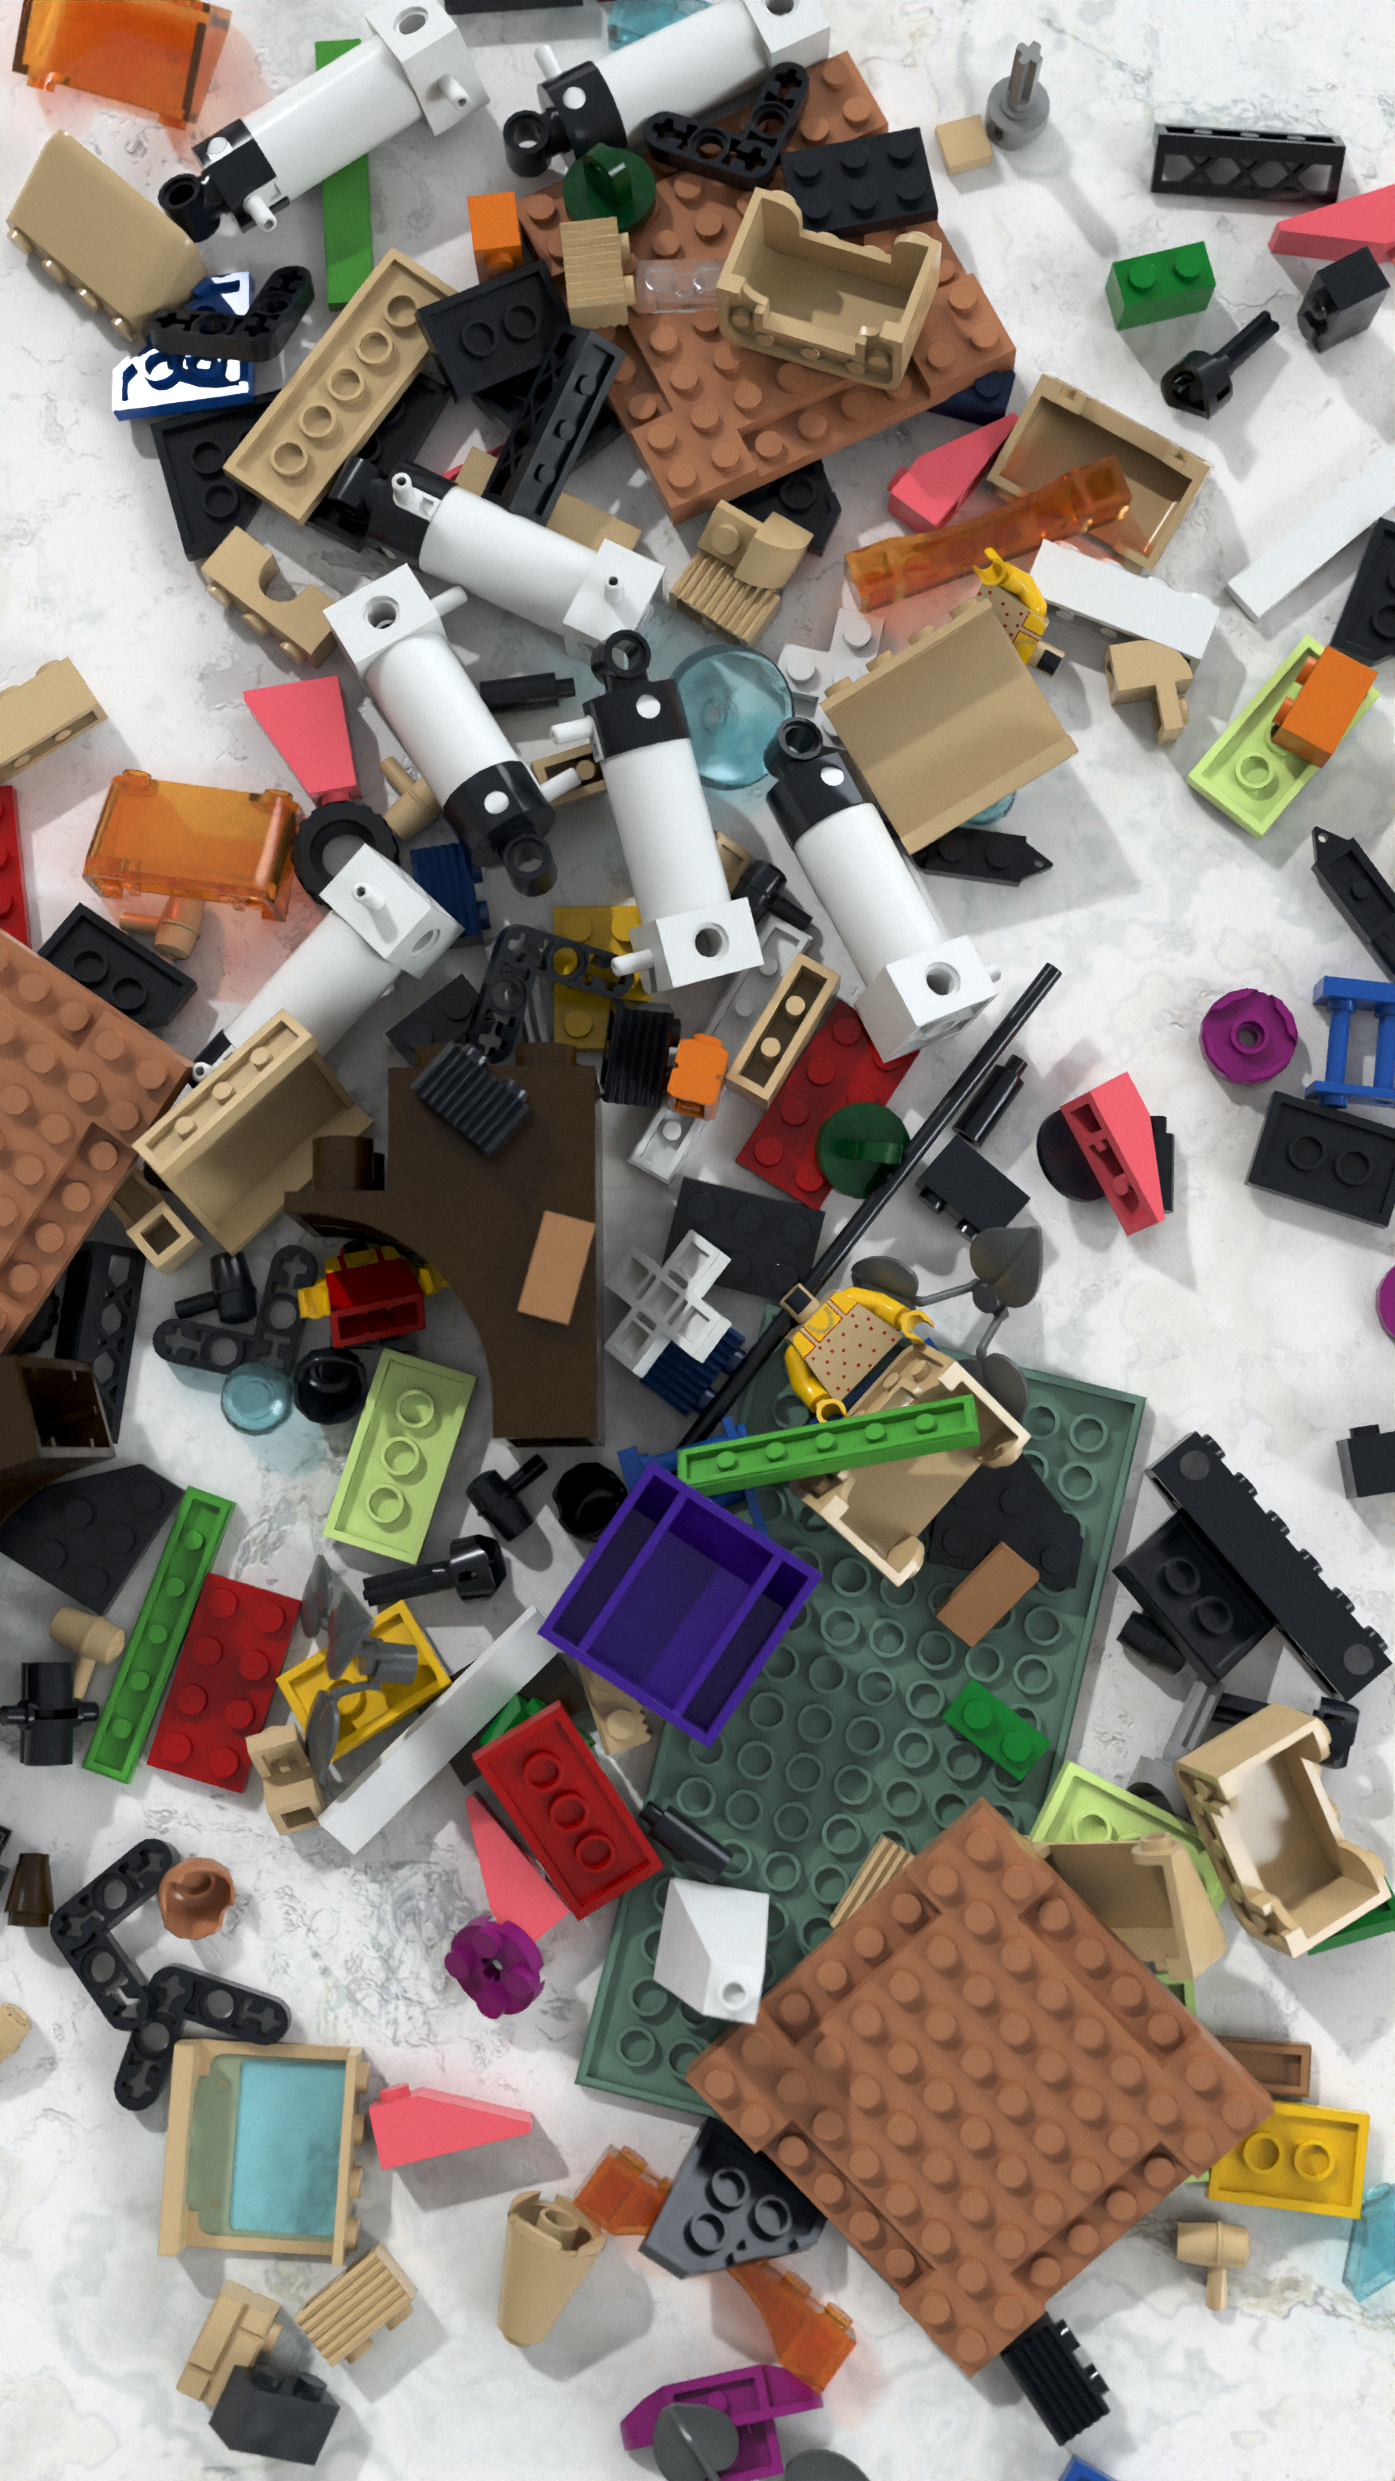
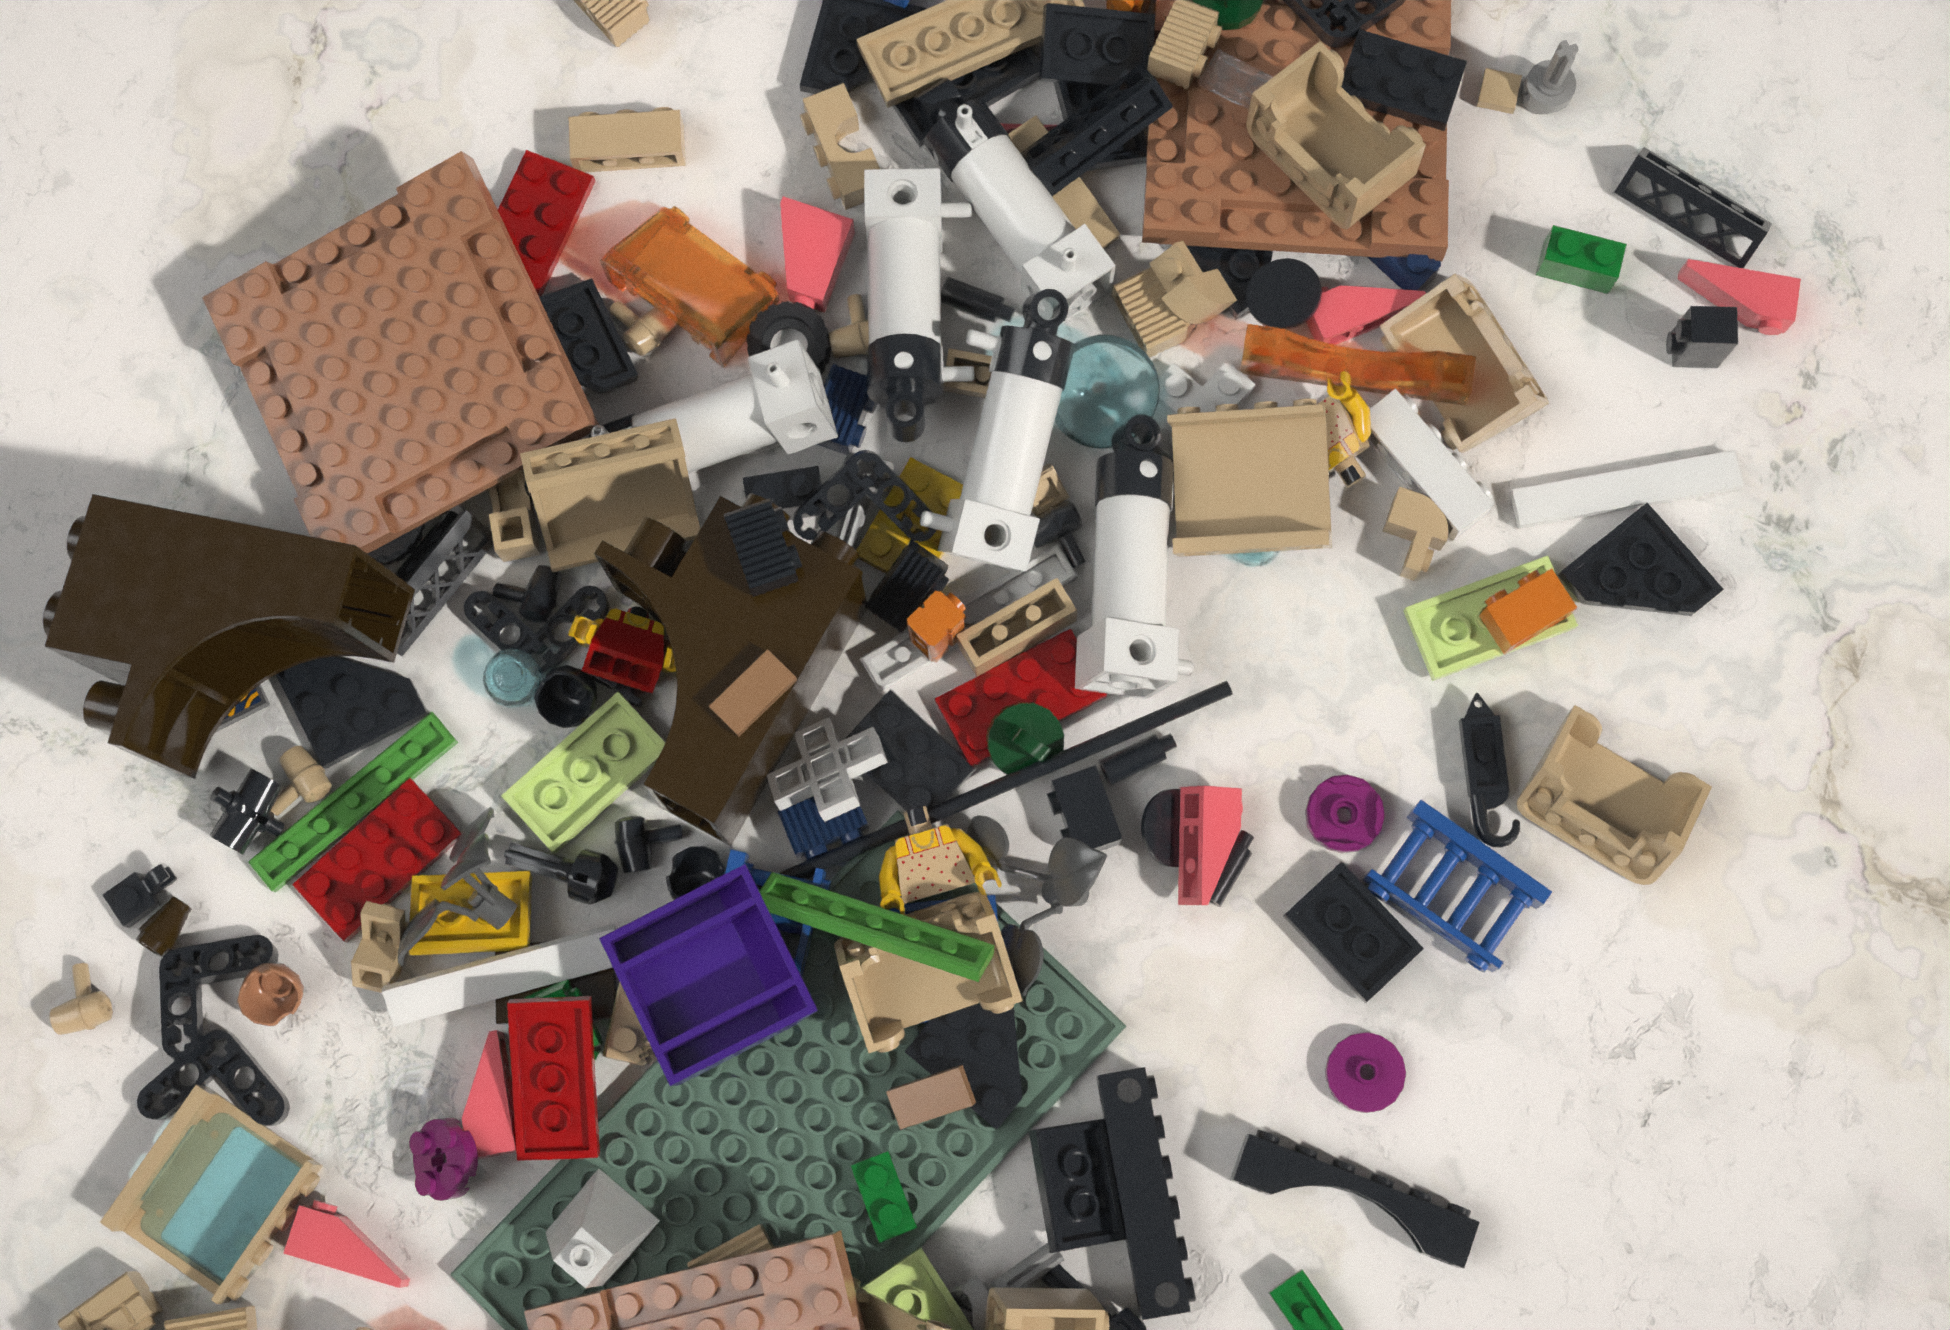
camera: 30 degrees right, 5 degrees down
(686, 1840) = (624, 1148): black cylinder -> none
(862, 499) = (1284, 293): none -> black piece
(979, 856) = (1226, 583): black plate -> none
(1150, 1644) = (1027, 1200): black piece -> none
(1205, 378) = (1575, 342): black piece -> none

